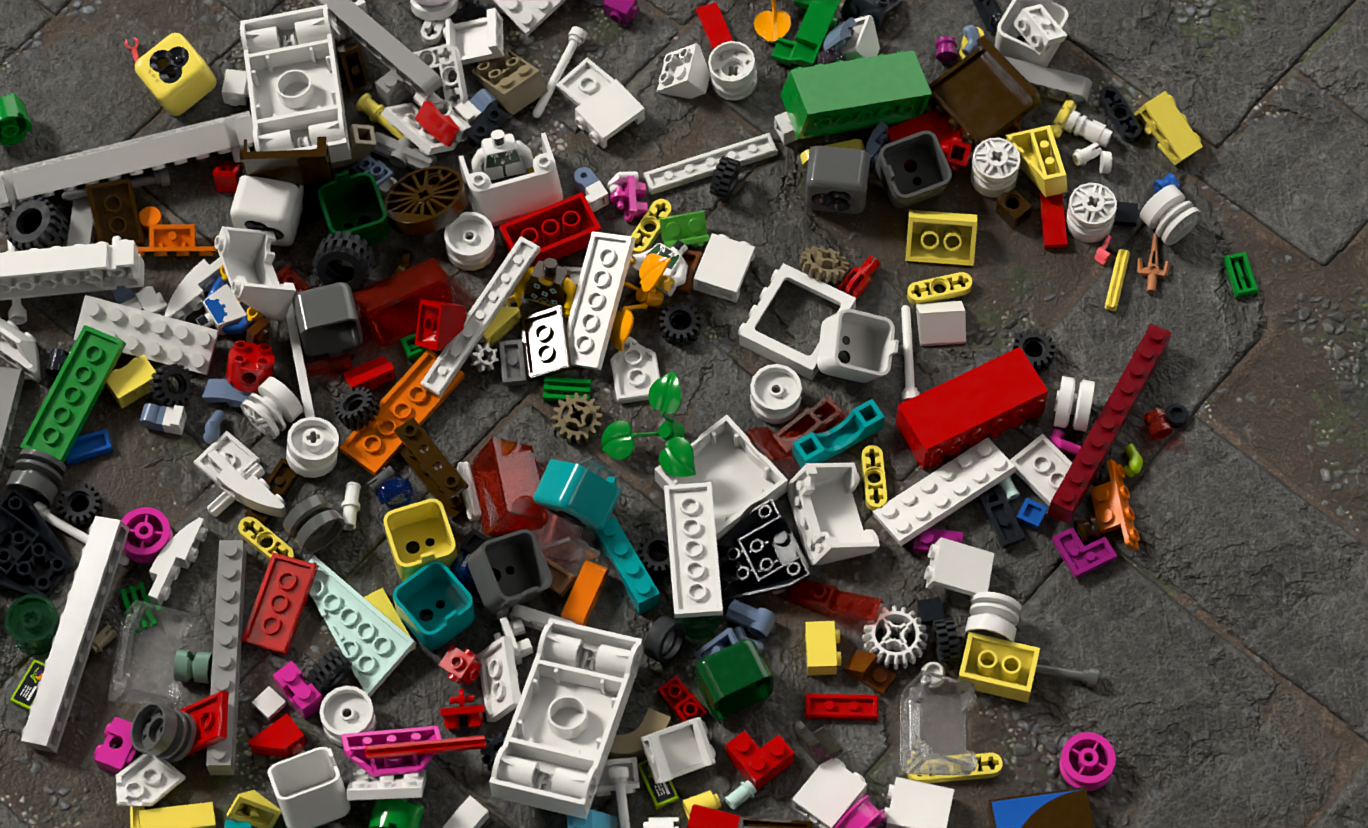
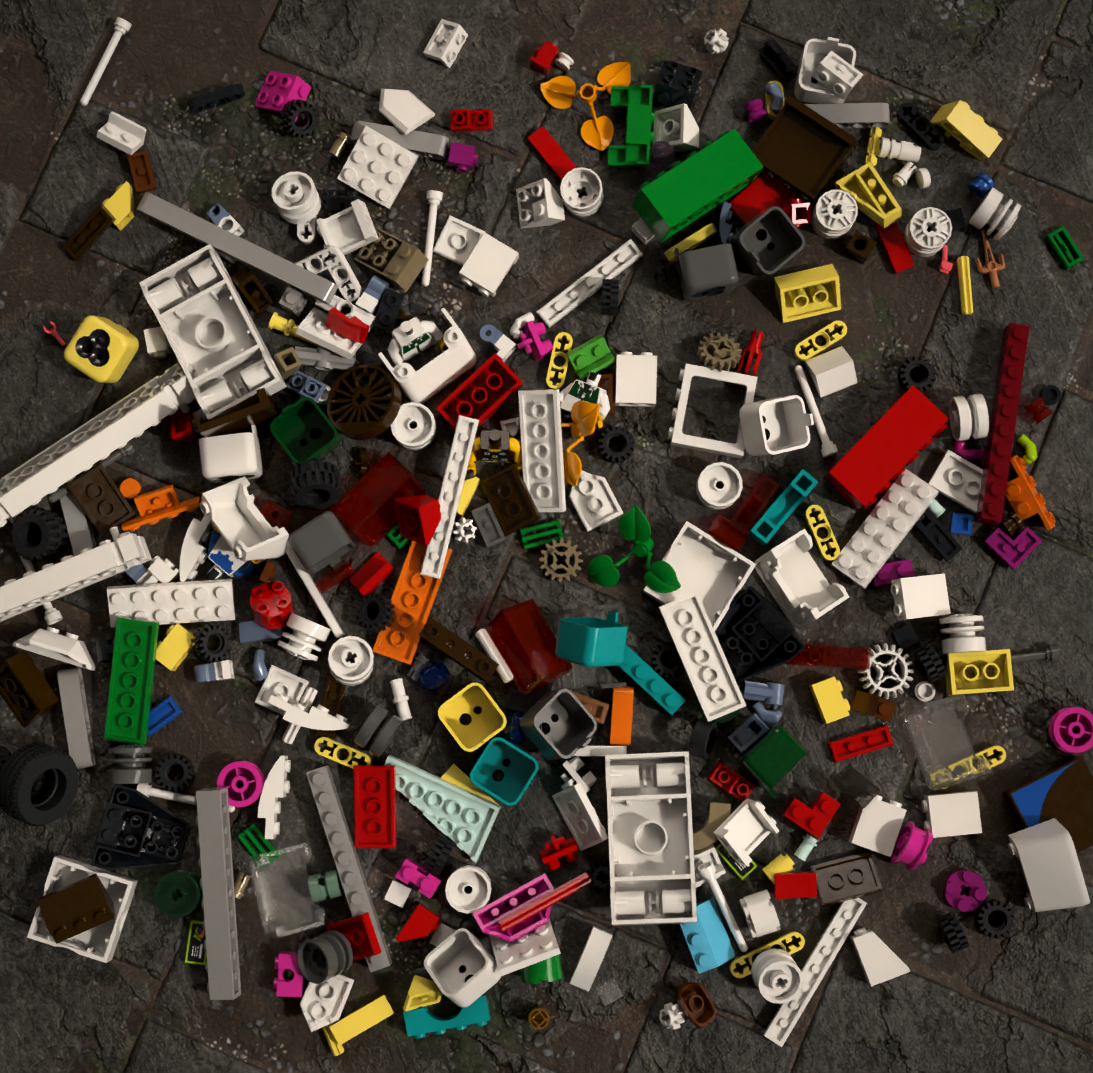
camera: 20 degrees left, 20 degrees up
(460, 665) = (544, 813): red brick -> none
(837, 36) = (663, 130): sand blue slope -> none

